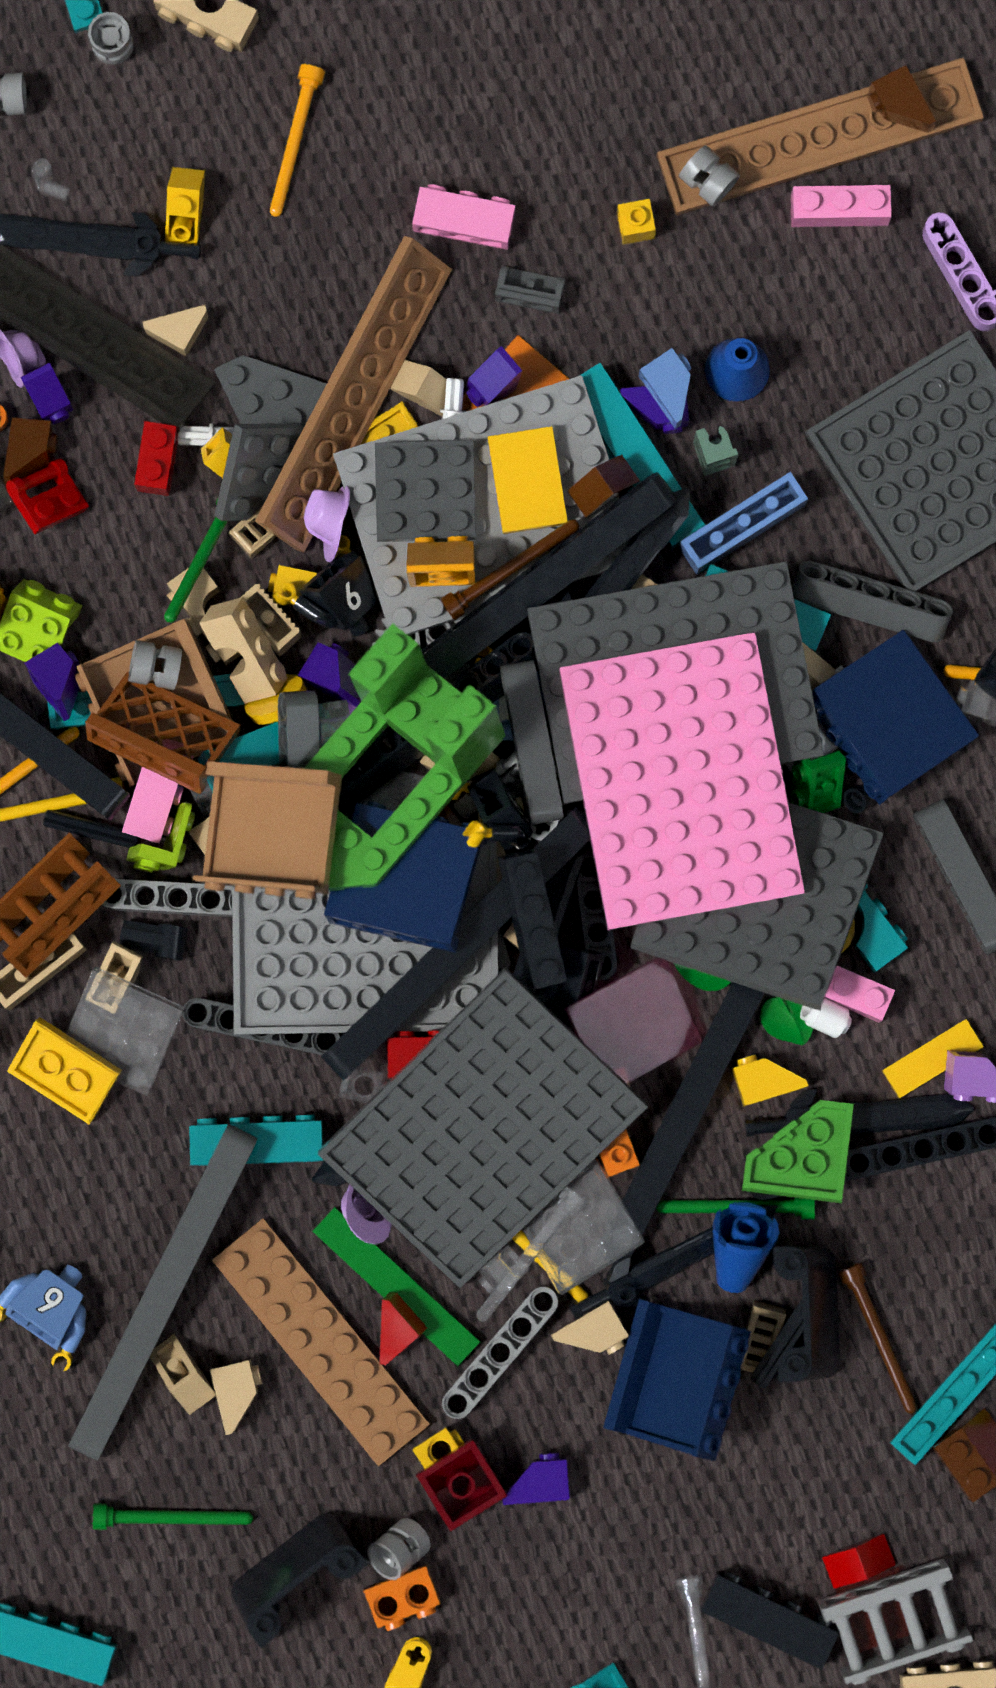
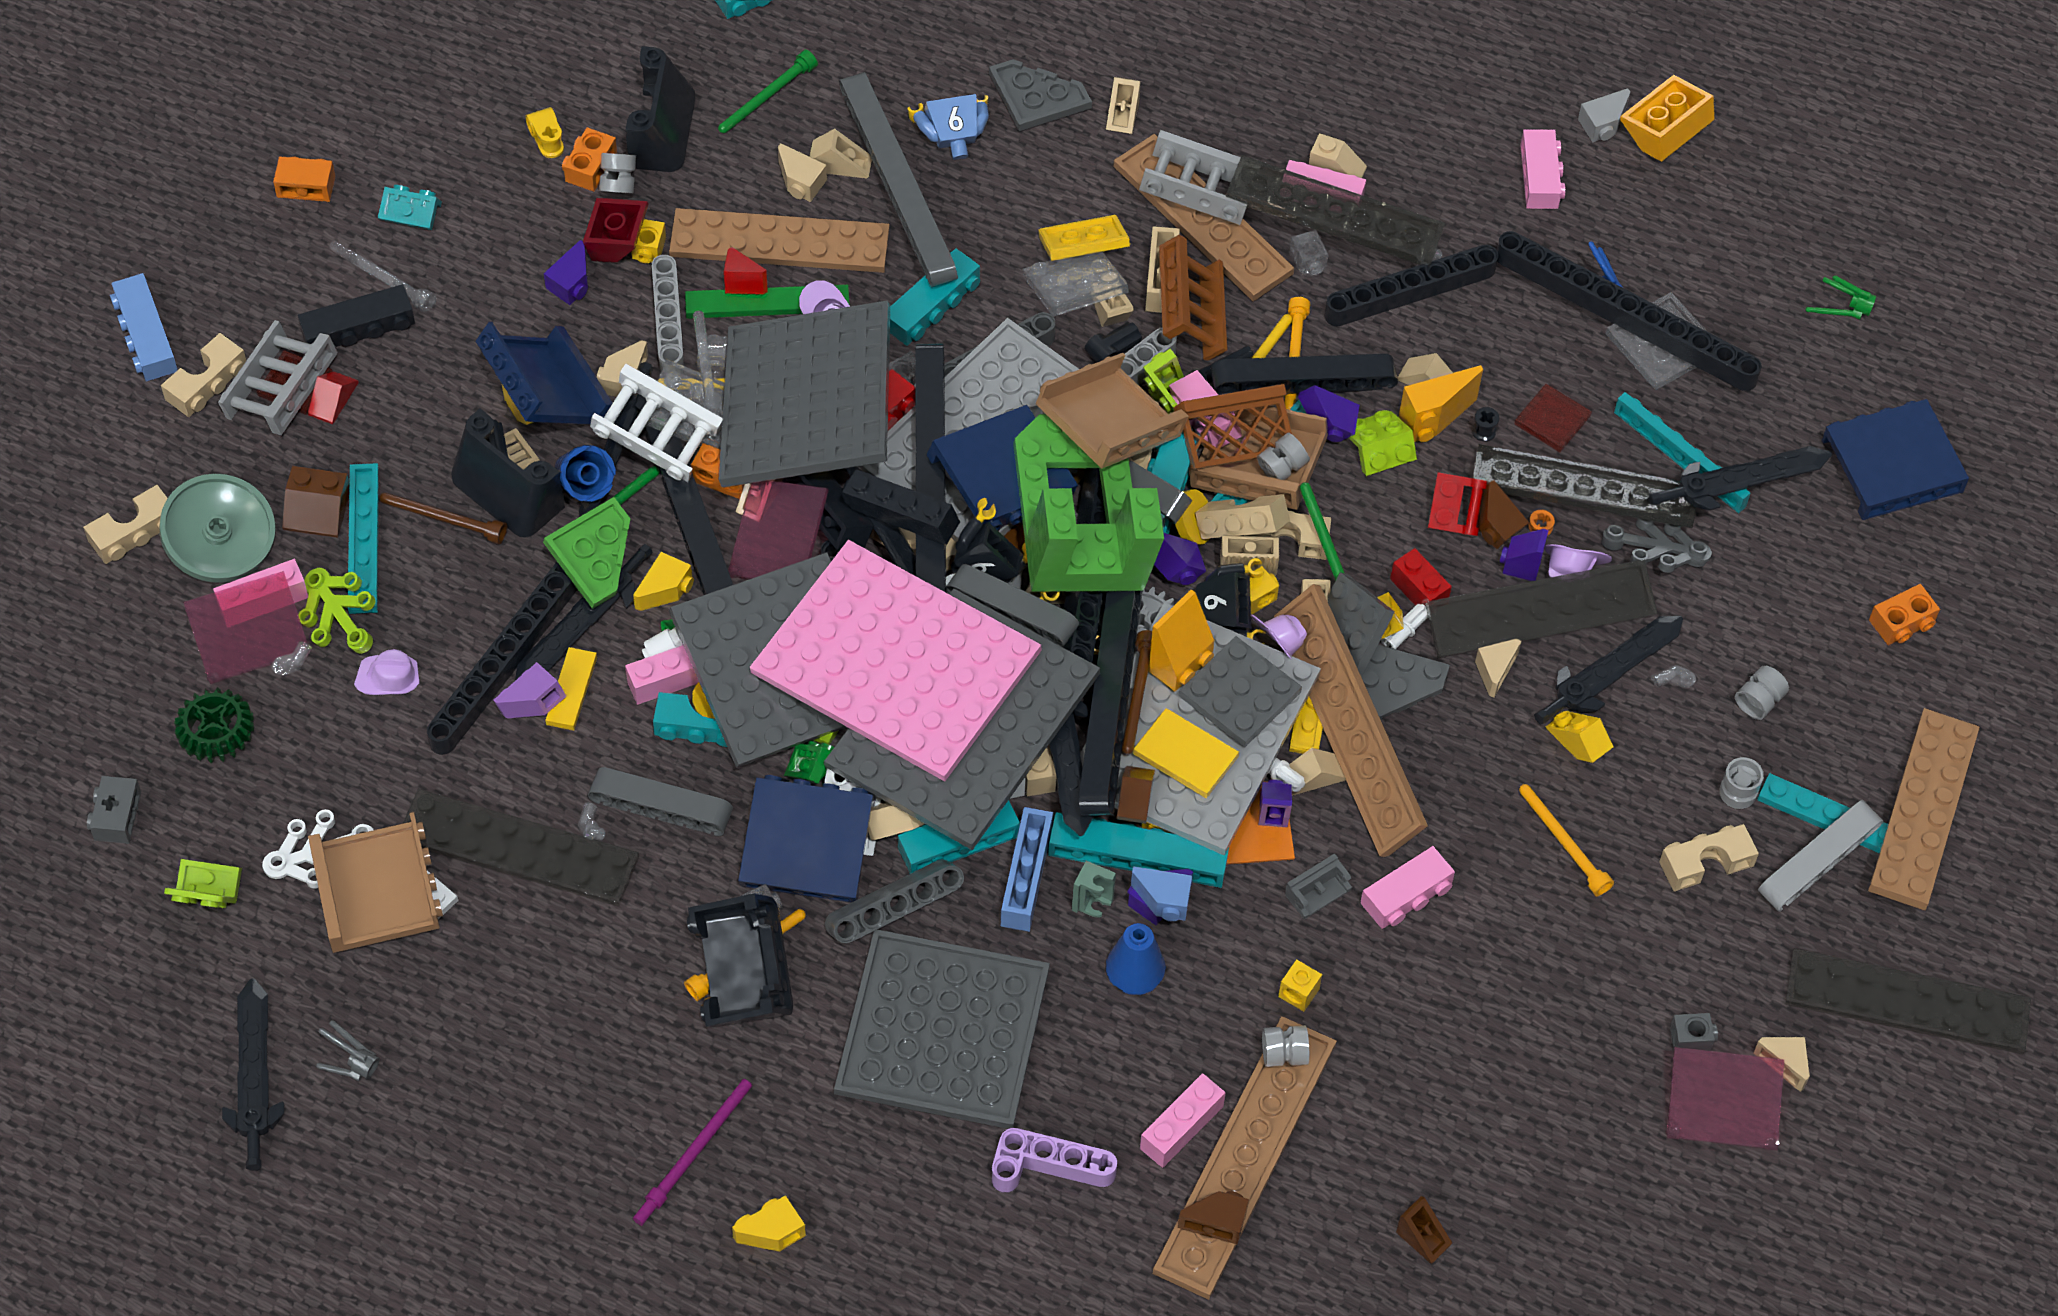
camera: 130 degrees right, 25 degrees down
(616, 1245) = (656, 396): none -> white fence

